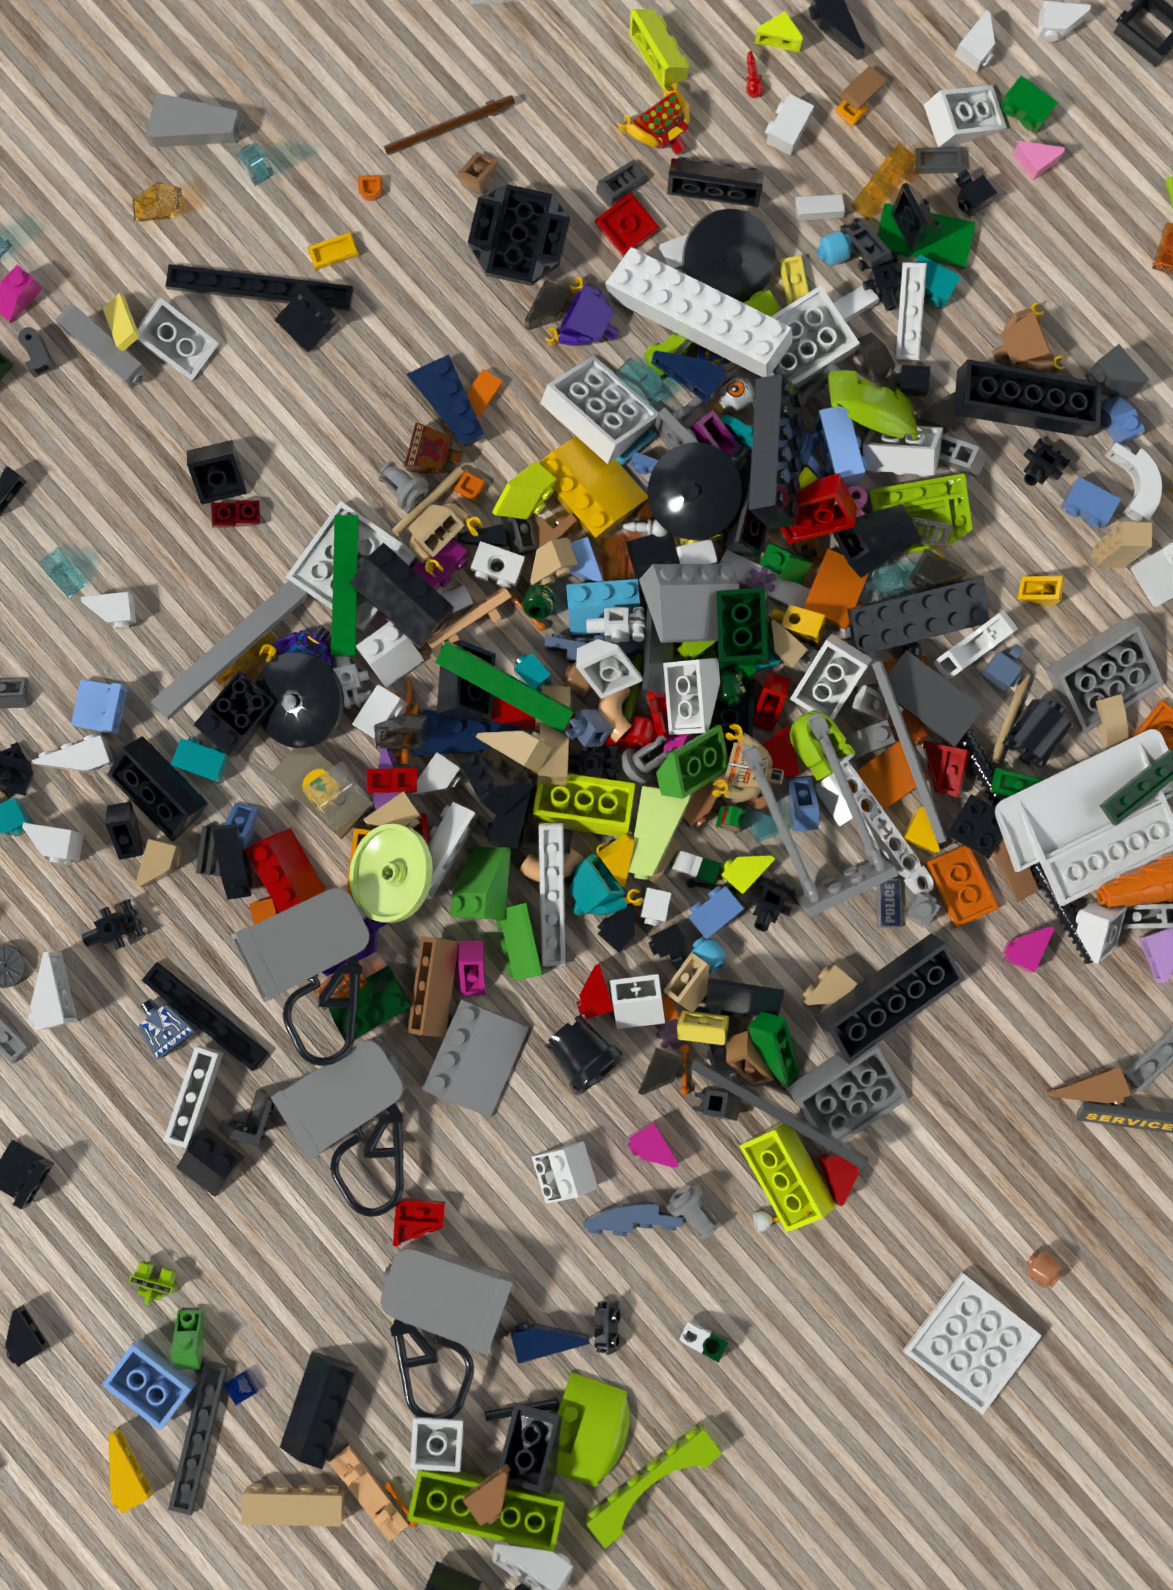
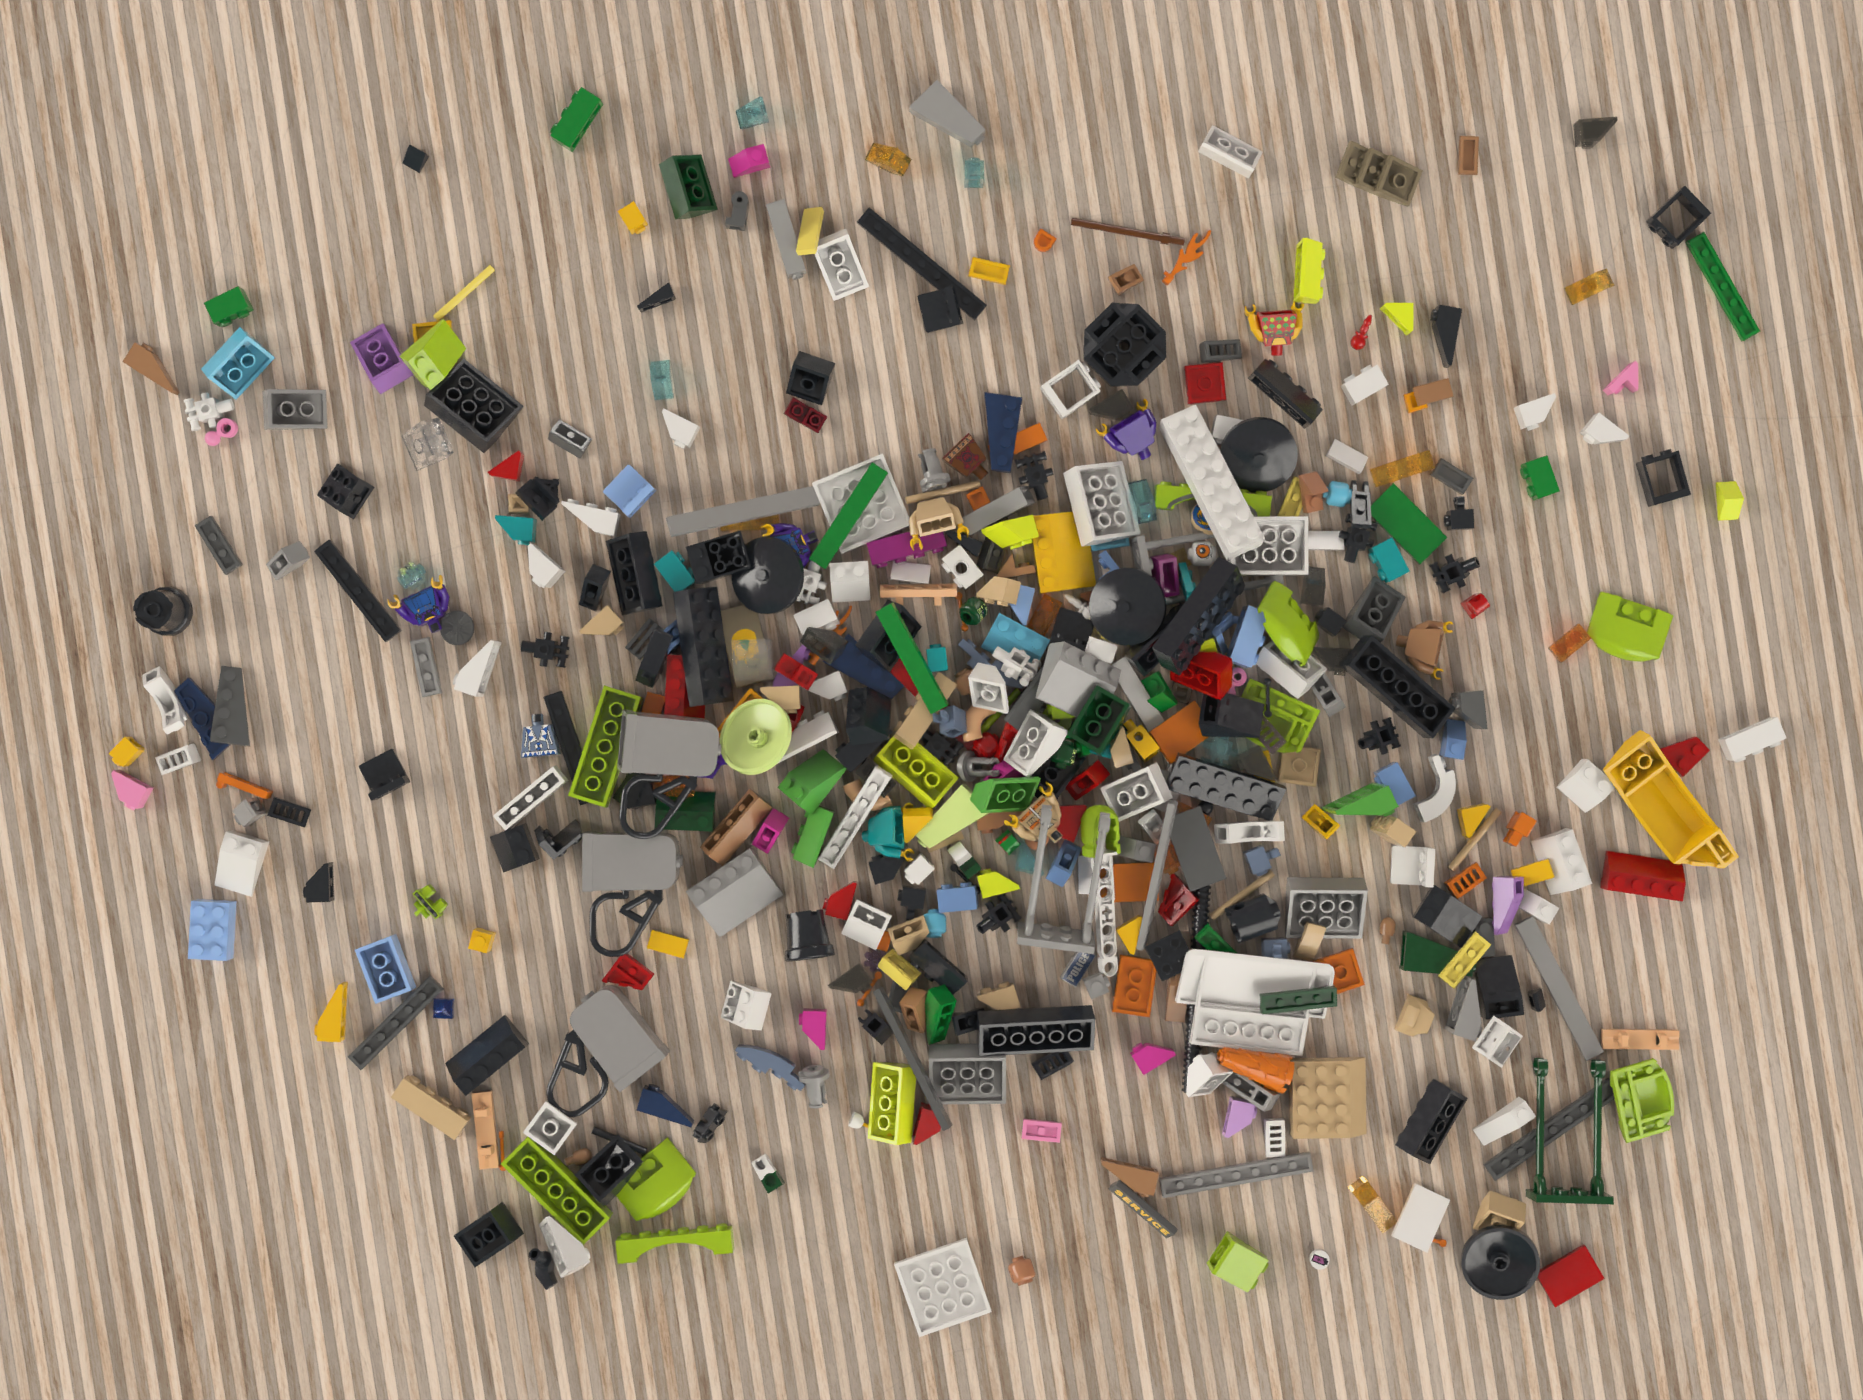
camera: 30 degrees right, 5 degrees up
(188, 1340) = (428, 955): bright green slope -> none
(236, 1285) = (481, 940): none -> yellow brick
(244, 1018) = (598, 763): none -> lime brick
(277, 817) = (703, 646): none -> black brick
(306, 1017) = (639, 793): none -> black slope
(402, 595) = (882, 550): black slope -> none
(439, 1159) = (668, 943): none -> yellow tile
(485, 336) = (1056, 403): none -> white window
(487, 1498) = (562, 1183): medium nougat slope -> none
(489, 1456) = (579, 1157): none -> medium nougat cylinder
(504, 467) = (998, 509): none -> light grey slope
(513, 424) = (1036, 475): none -> black piece
(519, 746) = (895, 705): tan slope -> none
(528, 110) = (1189, 256): none -> orange piece
(692, 373) = (1181, 525): dark blue slope -> none
(754, 581) = (1133, 689): clear purple plant -> none
(805, 260) = (1311, 491): none -> nougat slope
(809, 1037) = (965, 1021): none -> black slope
(890, 480) = (1267, 713): none -> black hinge
(911, 311) = (1359, 573): white tile -> none
(914, 219) = (1405, 511): black slope -> none
(936, 1025) = (1069, 1060): none -> black slope
(950, 340) = (1374, 610): none -> dark grey slope
(964, 115) = (1490, 457): white slope -> none
(965, 1103) = (1041, 1130): none -> bright pink plate
(981, 548) = (1300, 767): none -> tan tile
(1005, 249) = (1453, 571): none -> black piece
(1037, 157) = (1519, 519): bright pink slope -> none
(1050, 269) = (1475, 605): none -> red leg
(1078, 530) = (1368, 800): none -> bright green slope
(1081, 749) = (1275, 947): none -> sand blue brick

